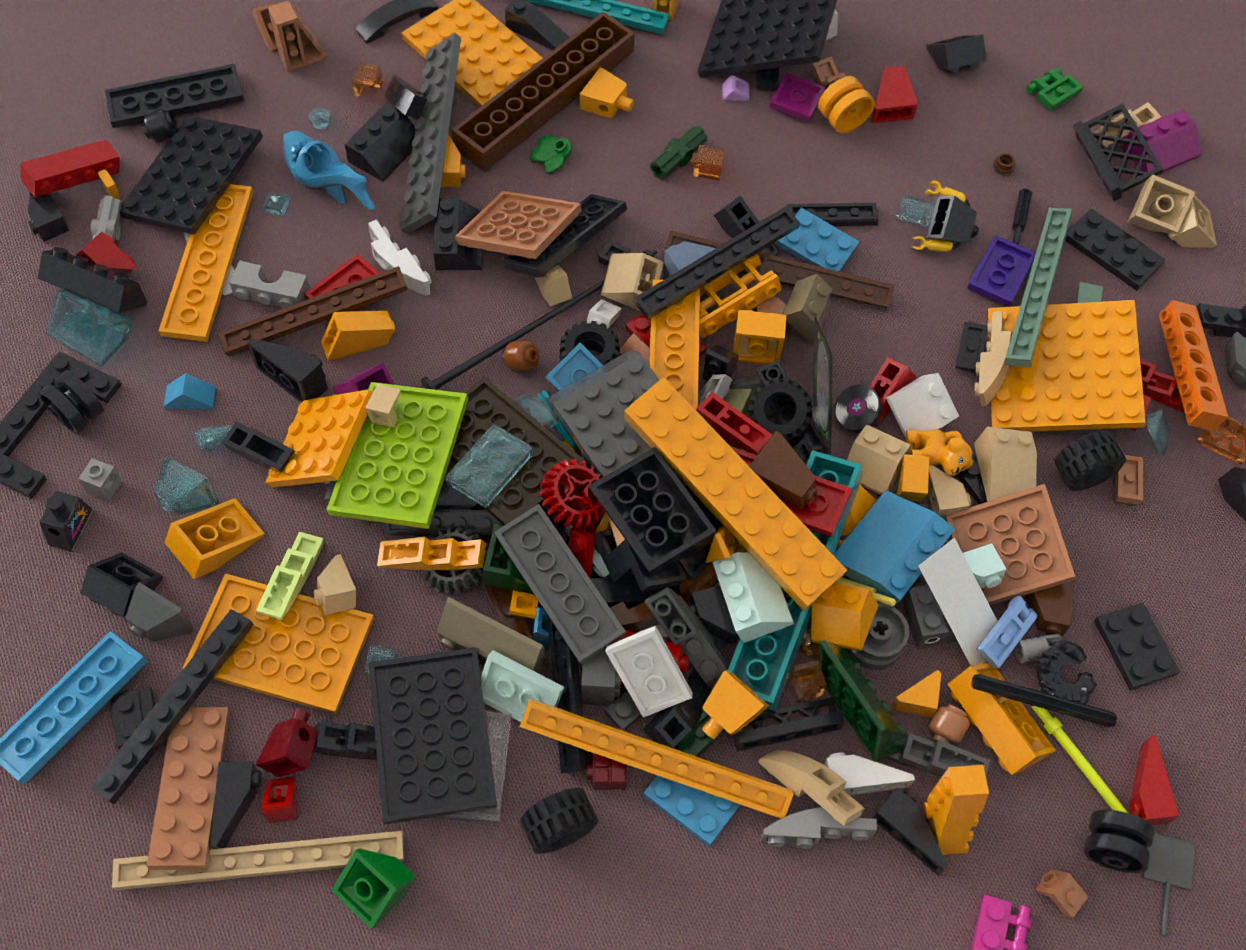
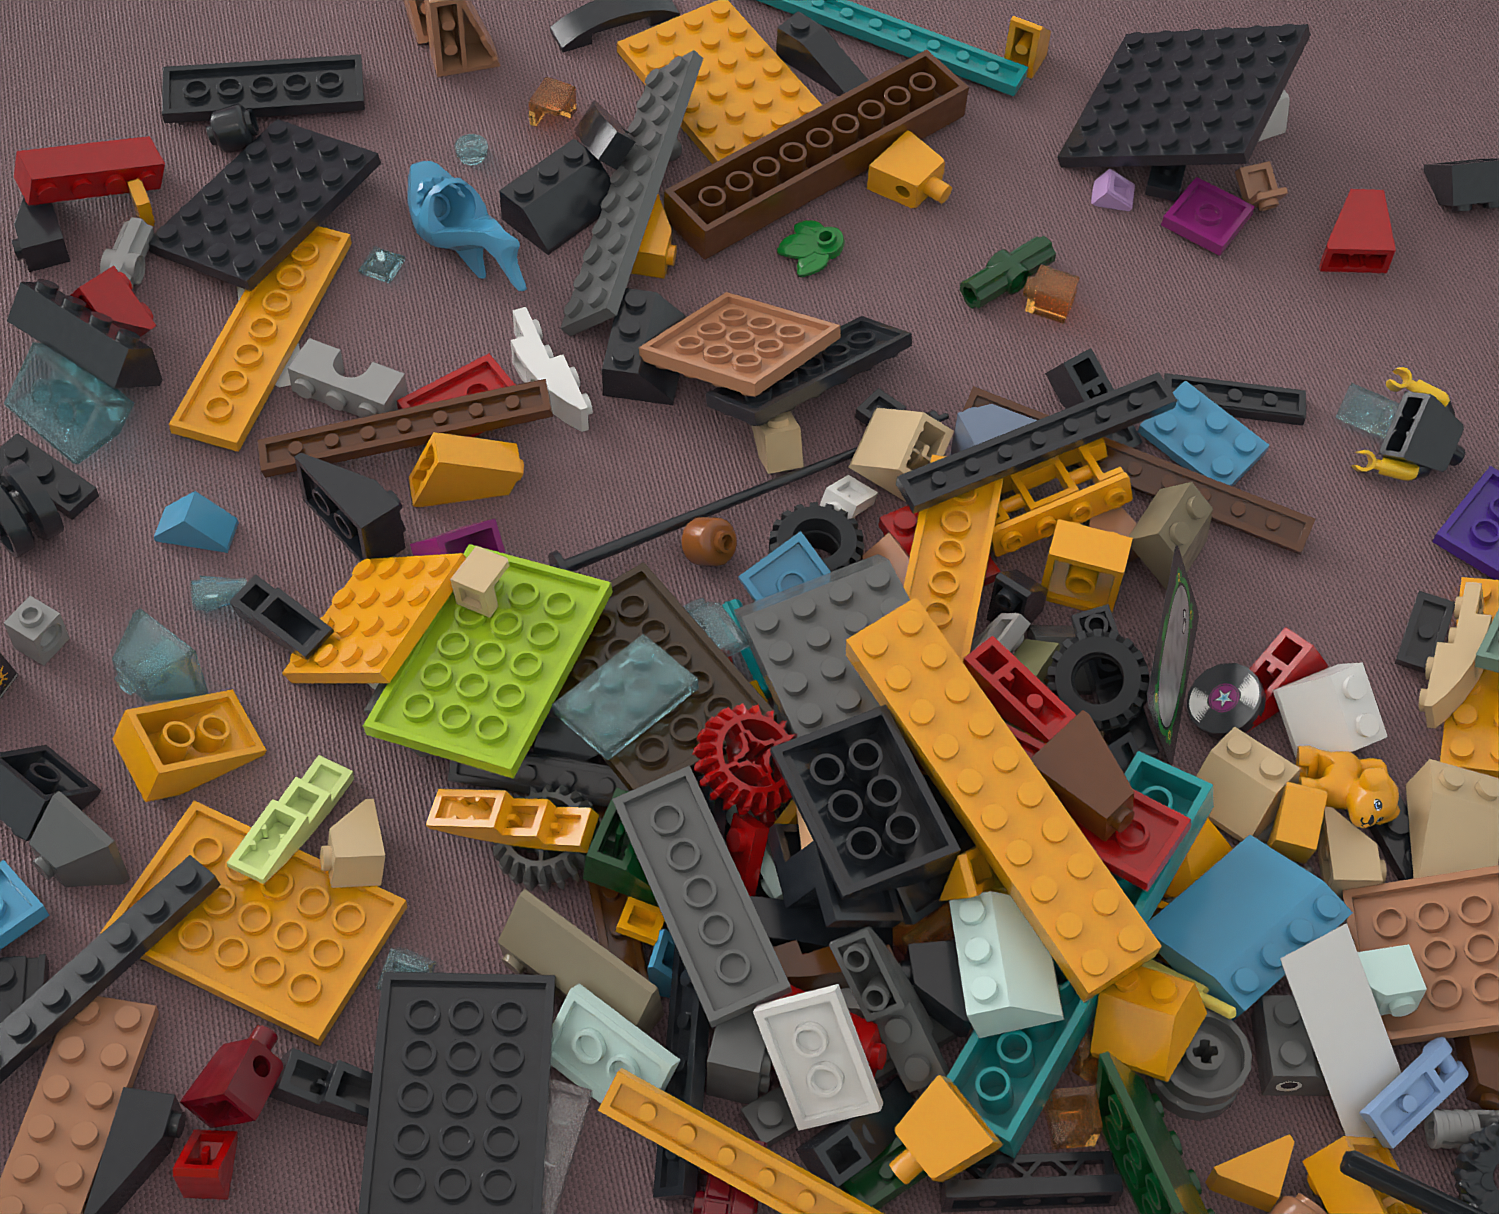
camera: 10 degrees right, 5 degrees down
(846, 104) = (1281, 235): light orange wheel -> none

